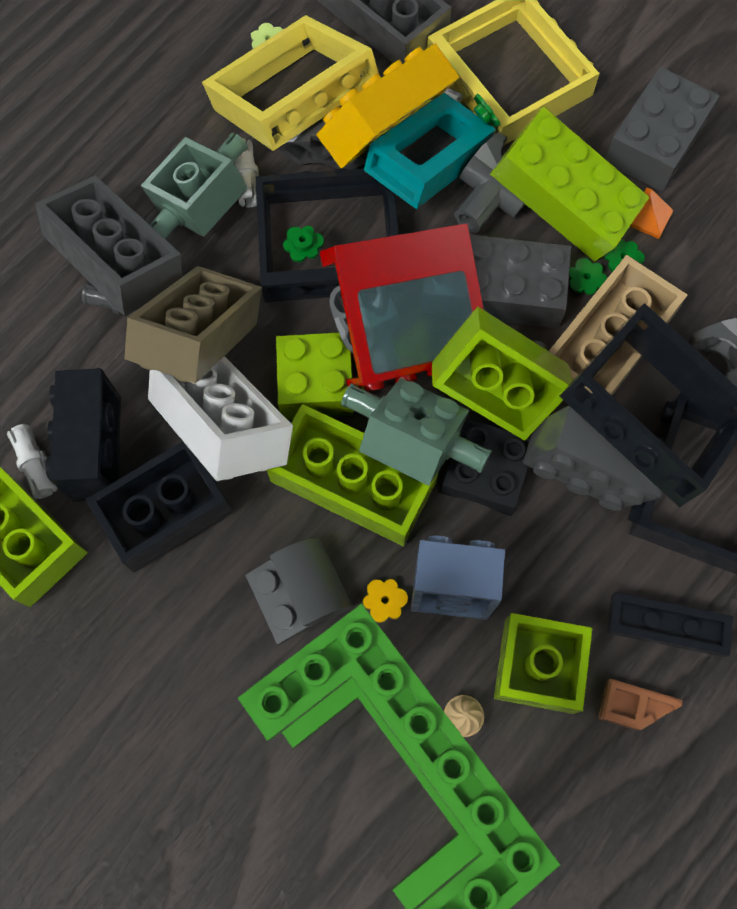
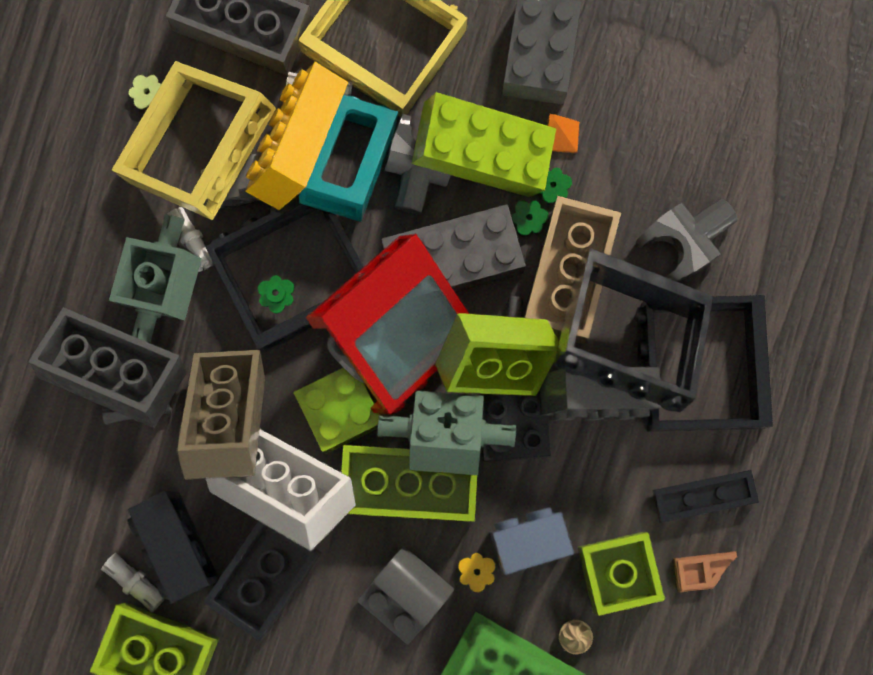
camera: 25 degrees left, 10 degrees up
(484, 111) = (382, 104): green plant -> none

